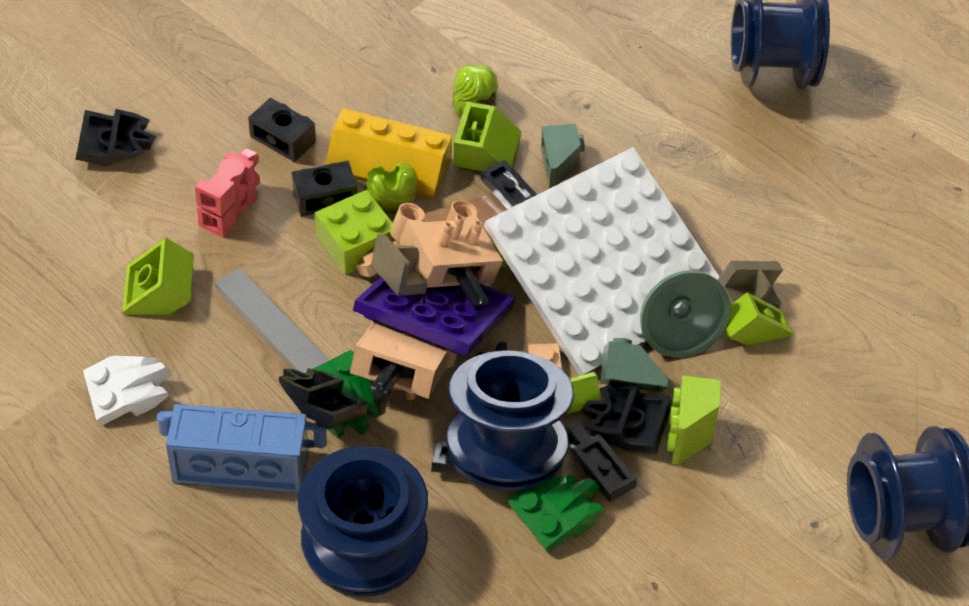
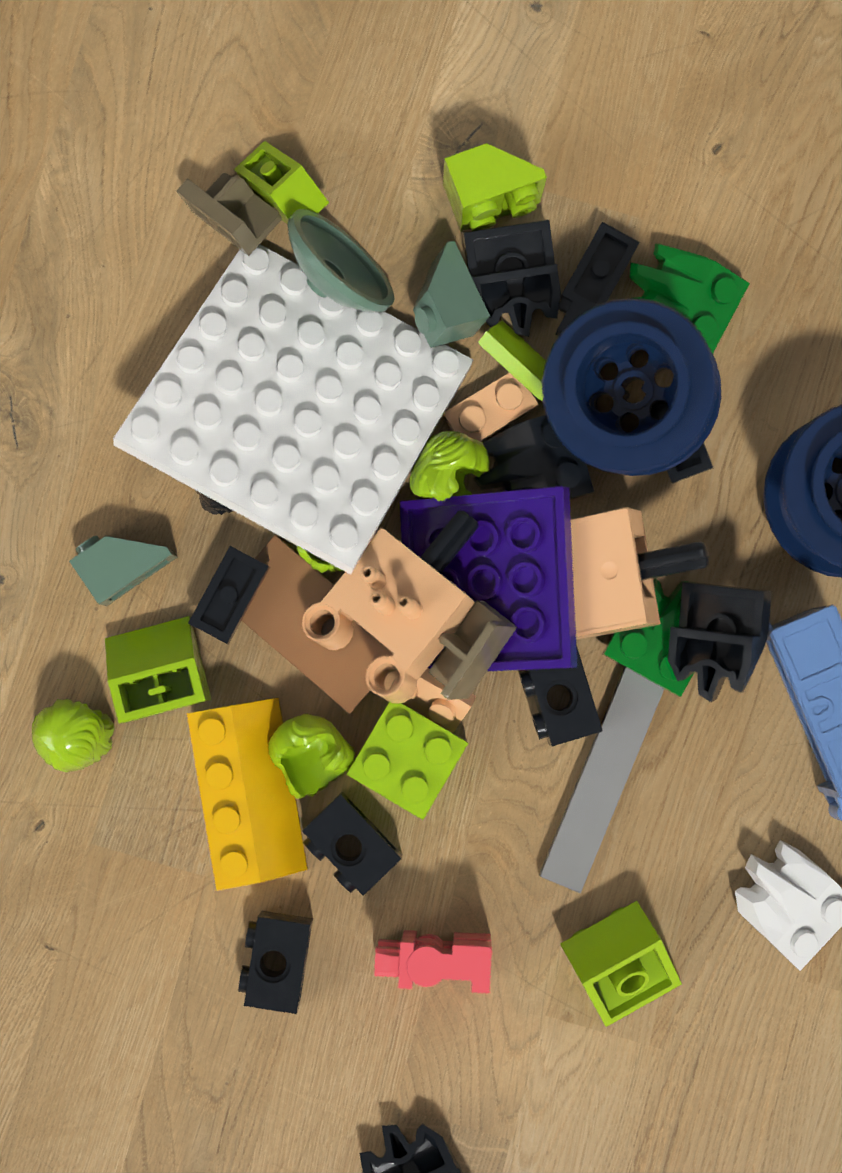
camera: 120 degrees left, 35 degrees up
(334, 323) = (573, 721): none -> black brick
(523, 322) = (445, 462): none -> lime hair

